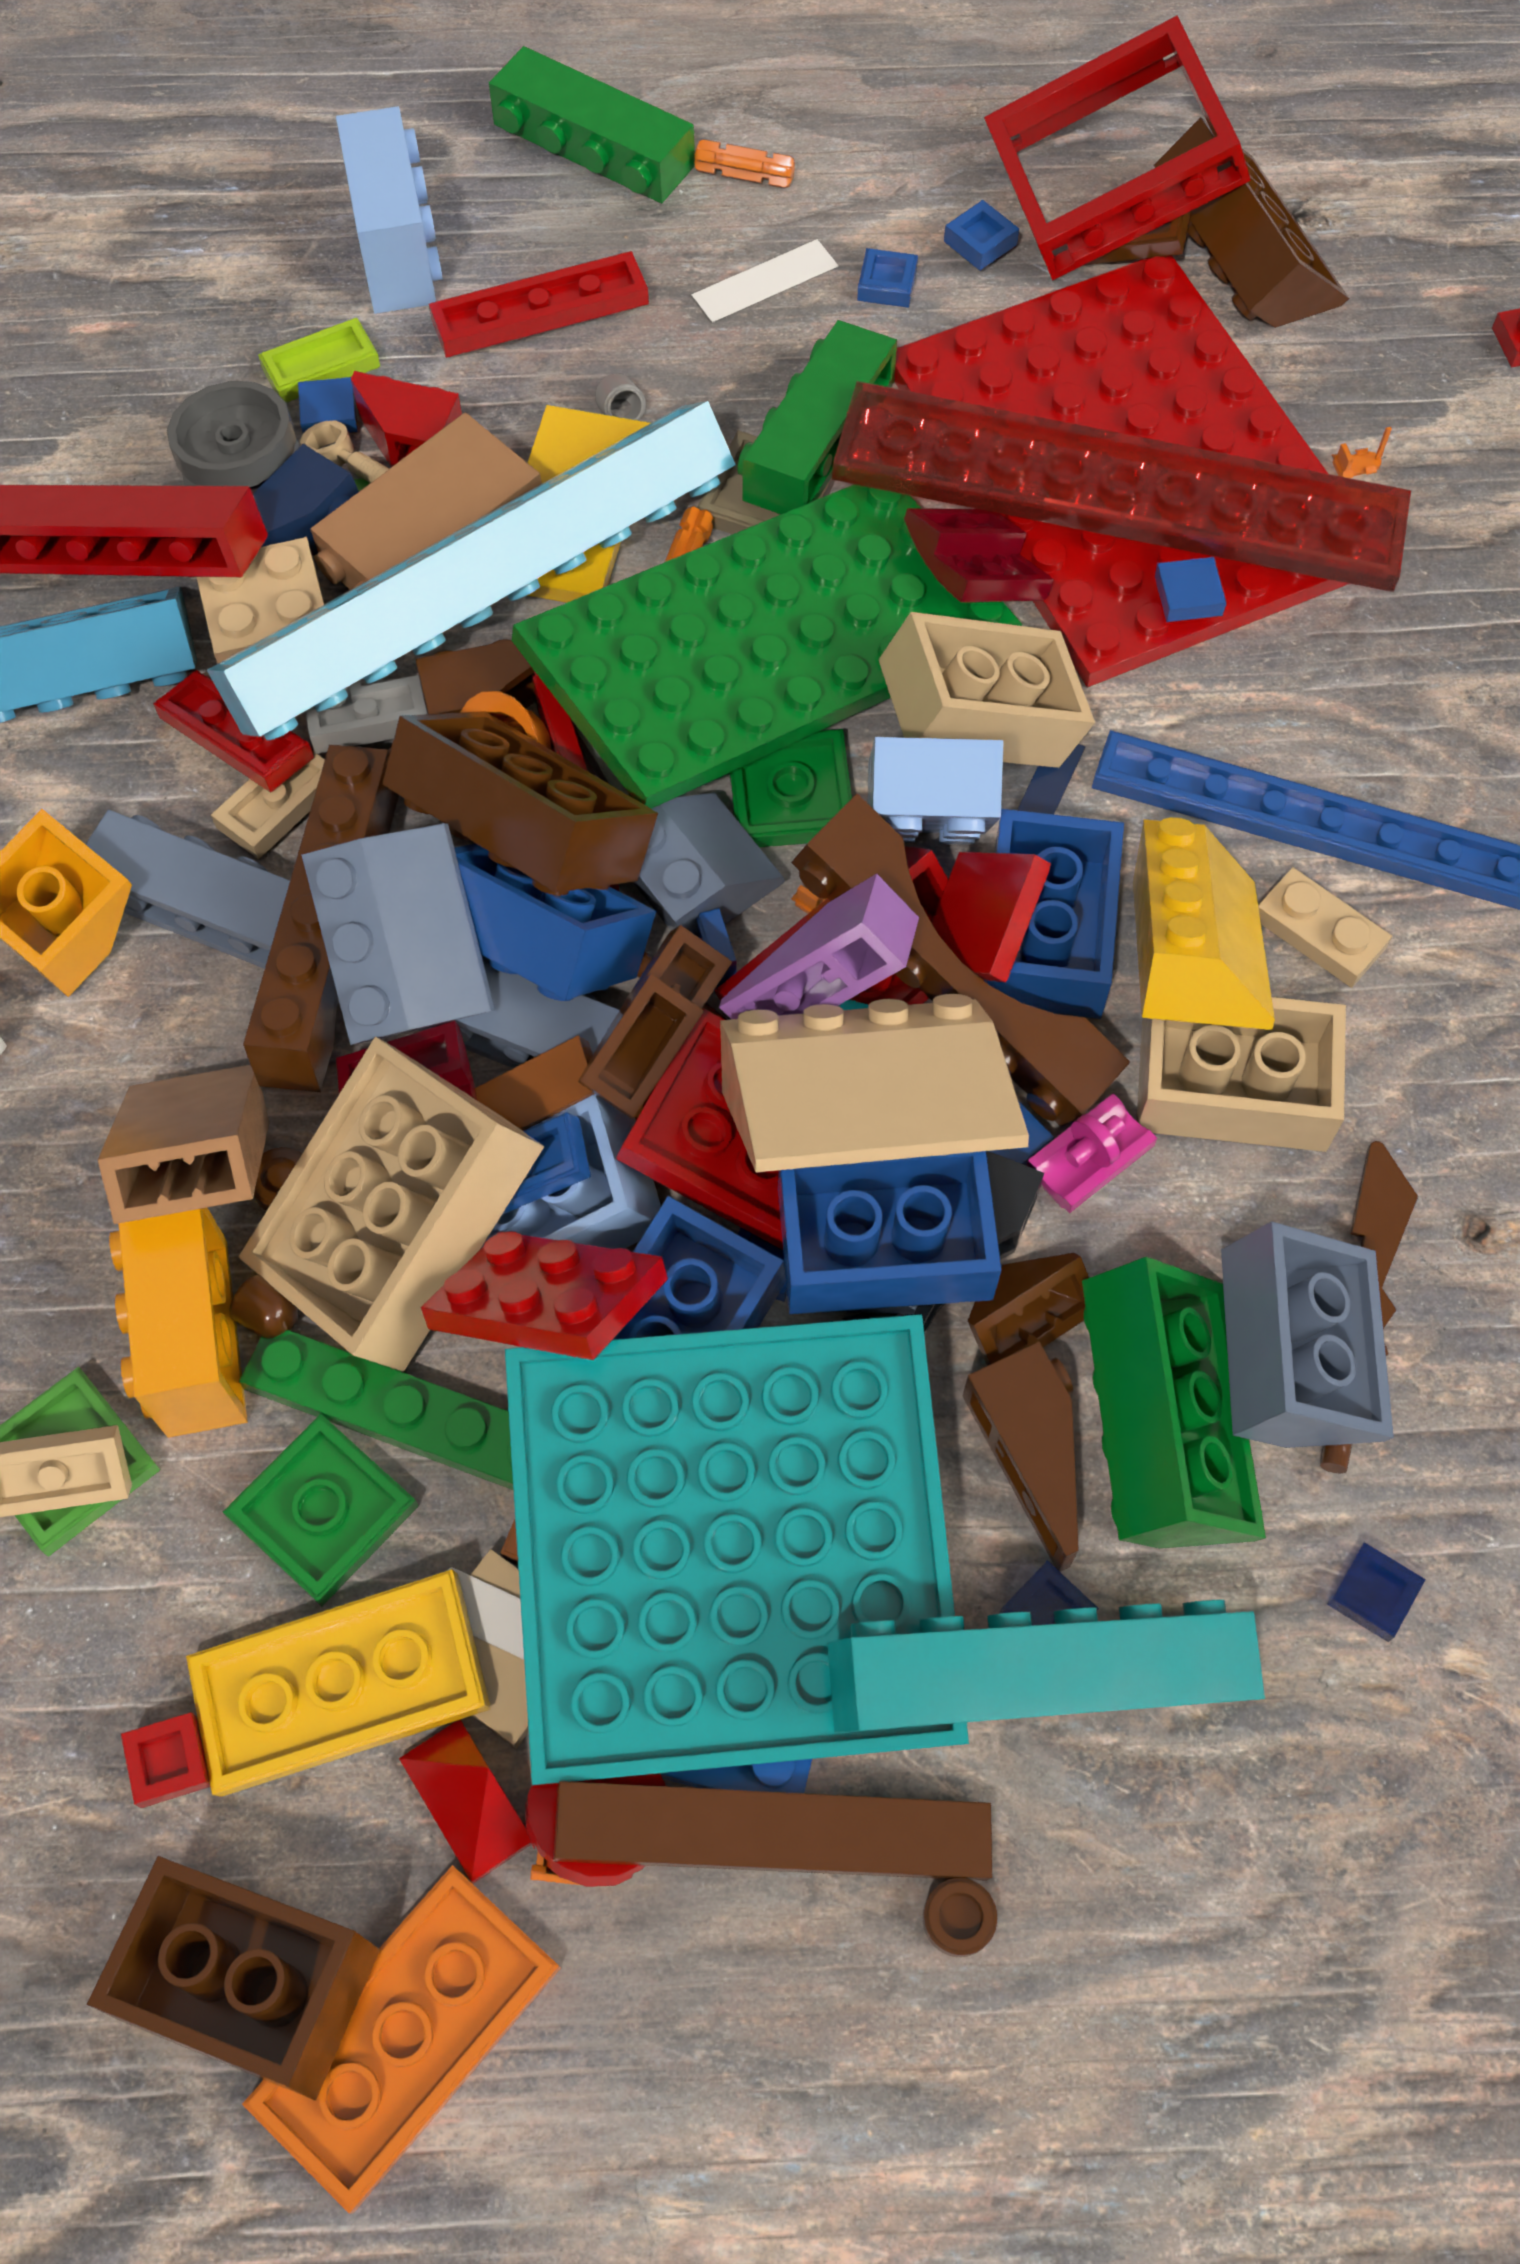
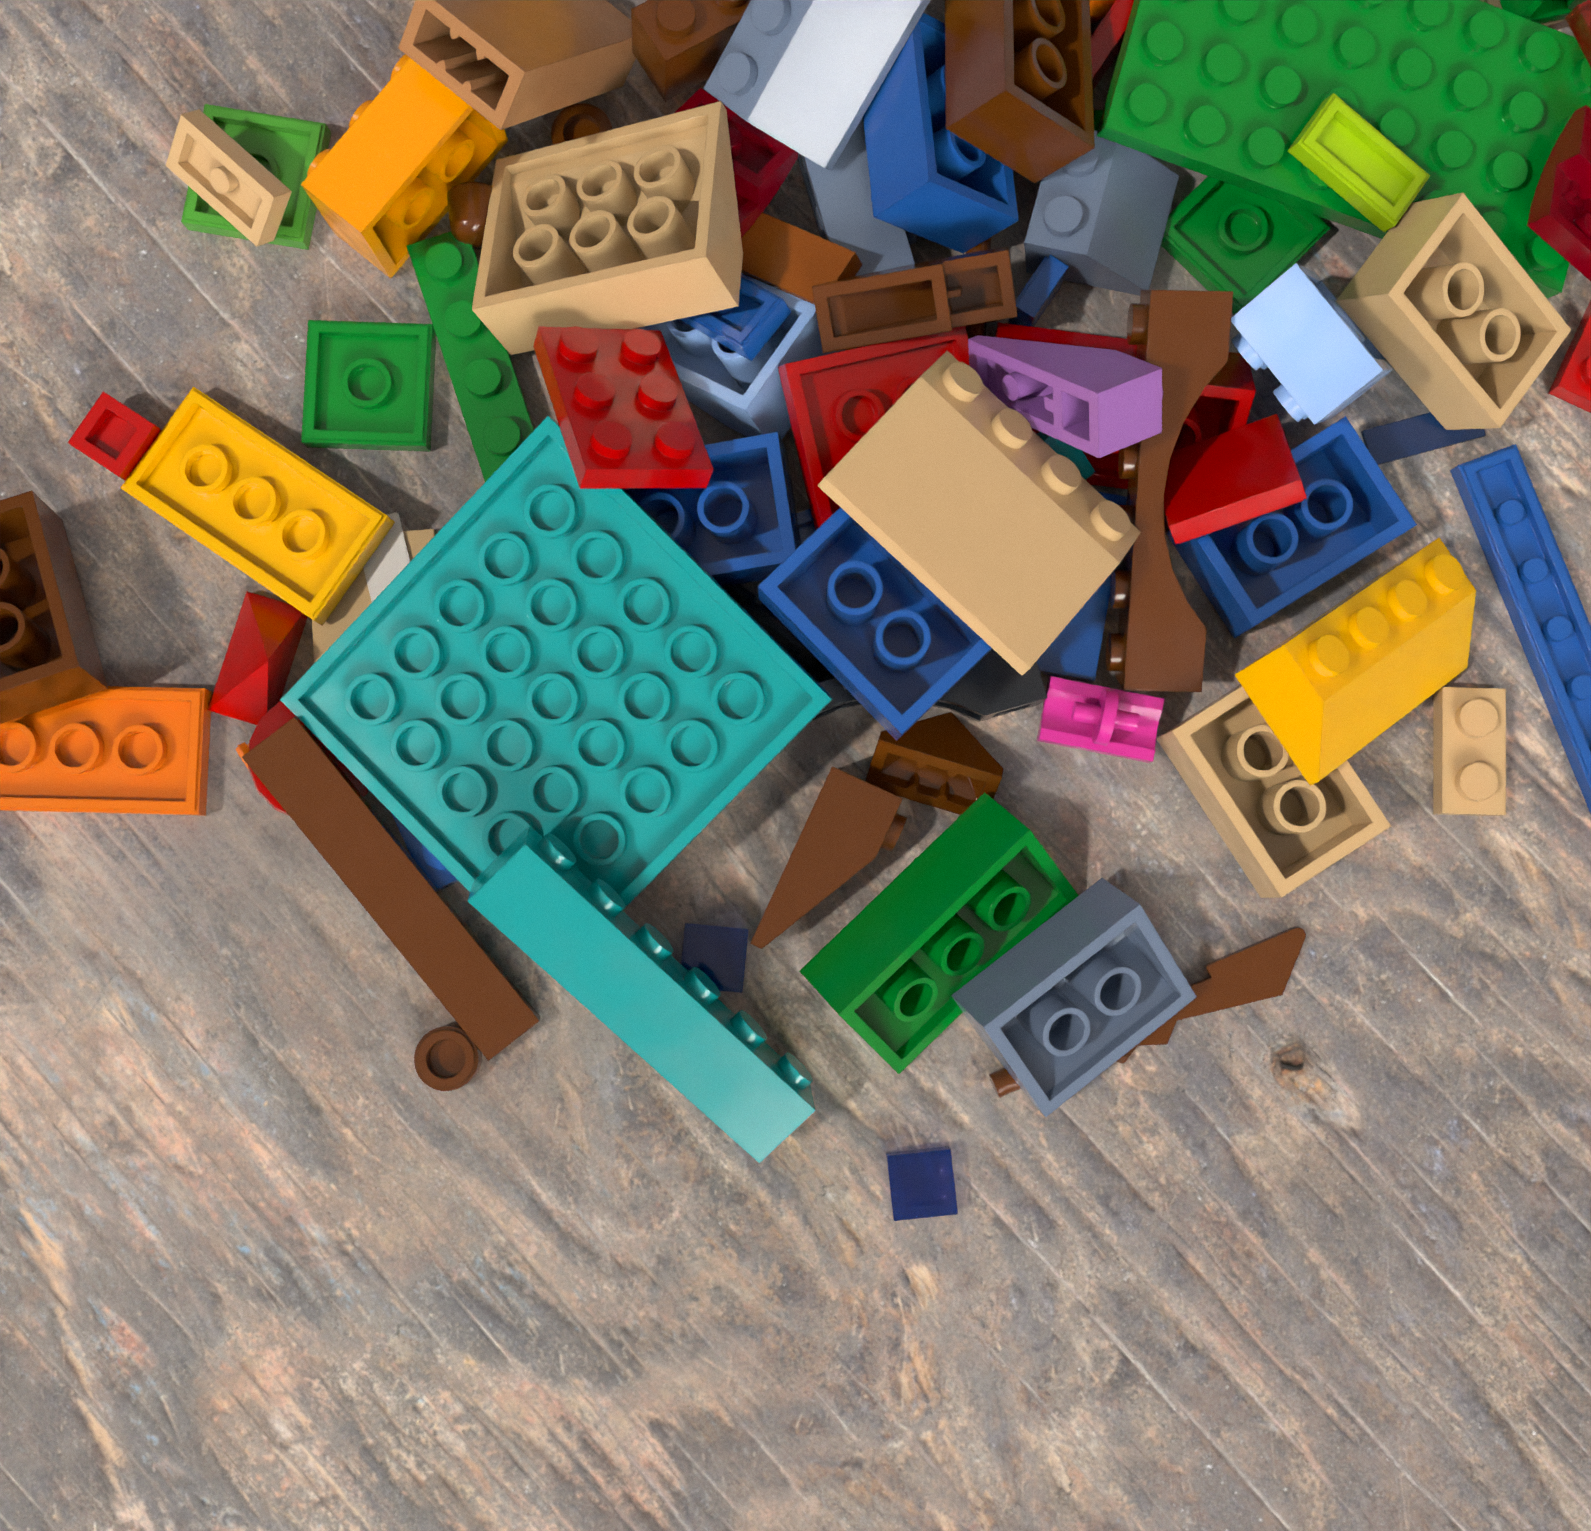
camera: 50 degrees right, 20 degrees up
(822, 666) = (1359, 163): none -> lime tile

